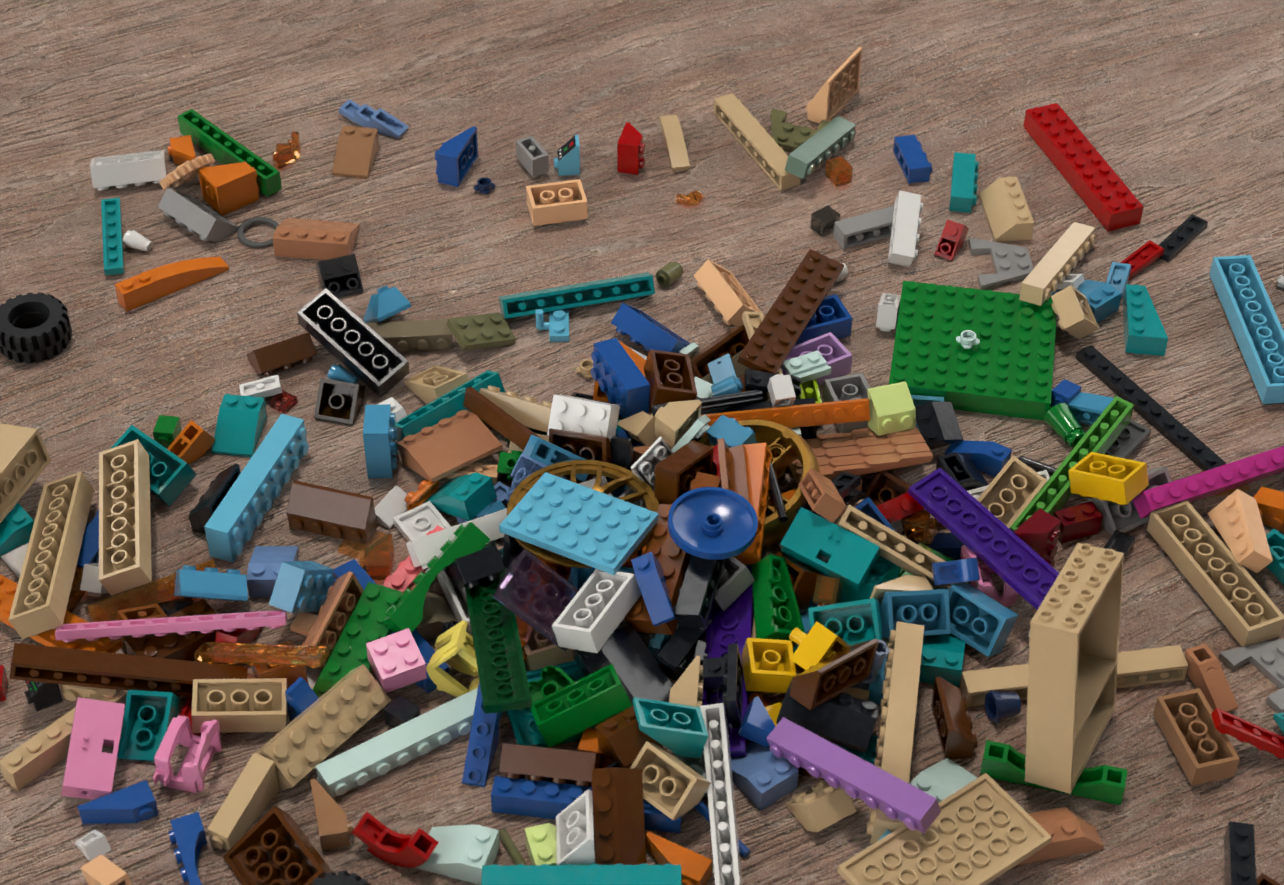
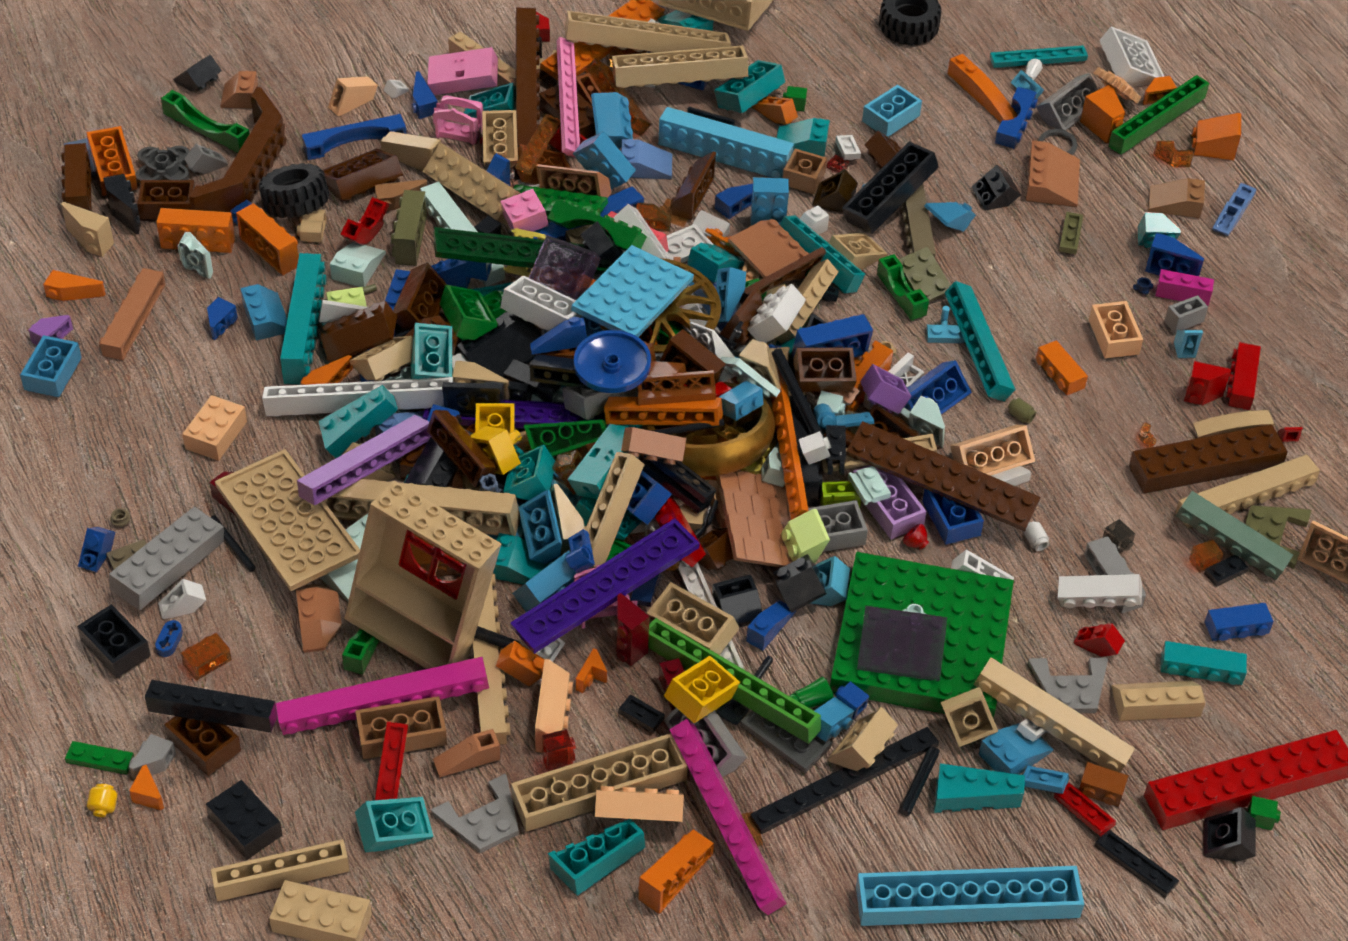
camera: 90 degrees right, 5 degrees up
(165, 245) = (1024, 81): none -> medium azure plate
(203, 244) = (1011, 130): none -> blue arch
(204, 348) = (892, 110): none -> medium azure brick
(268, 114) = (1217, 136): none -> orange slope
(317, 417) = (805, 170): none -> medium nougat brick
(347, 477) = (733, 200): none -> blue slope
(406, 789) = (409, 227): none -> olive brick
(407, 228) = (1071, 233): none -> olive plate
(417, 164) = (1155, 223): none -> slope
(491, 156) = (1183, 286): none -> dark pink brick
(521, 342) = (892, 275): none -> green arch
(602, 129) = (1244, 375): none -> red brick
(607, 244) = (1061, 367): none -> orange brick
(678, 342) = (885, 389): none -> medium lavender brick
(679, 110) = (1290, 434): none -> red slope
(704, 326) = (927, 419): none -> light aqua slope
(721, 161) = (1207, 458): none -> reddish brown brick
(758, 288) = (1014, 476): none -> white slope
(767, 809) = (356, 420): none -> teal wedge
(853, 347) = (916, 537): none -> red brick
(858, 168) = (1226, 570): none -> black plate
(1008, 347) = (902, 643): none -> clear purple slope
(1111, 247) = (1103, 784): none -> dark orange brick
(1114, 159) = (1264, 812): none -> green brick
(1115, 381) = (864, 740): none -> tan slope
(1137, 360) = (919, 781): none -> black axle
(1143, 180) = (1230, 835): none -> black slope
(1152, 617) = (552, 702): none -> light nougat slope
(1167, 759) = (340, 704): none -> dark pink brick
(1193, 603) = (558, 750): none -> clear red brick

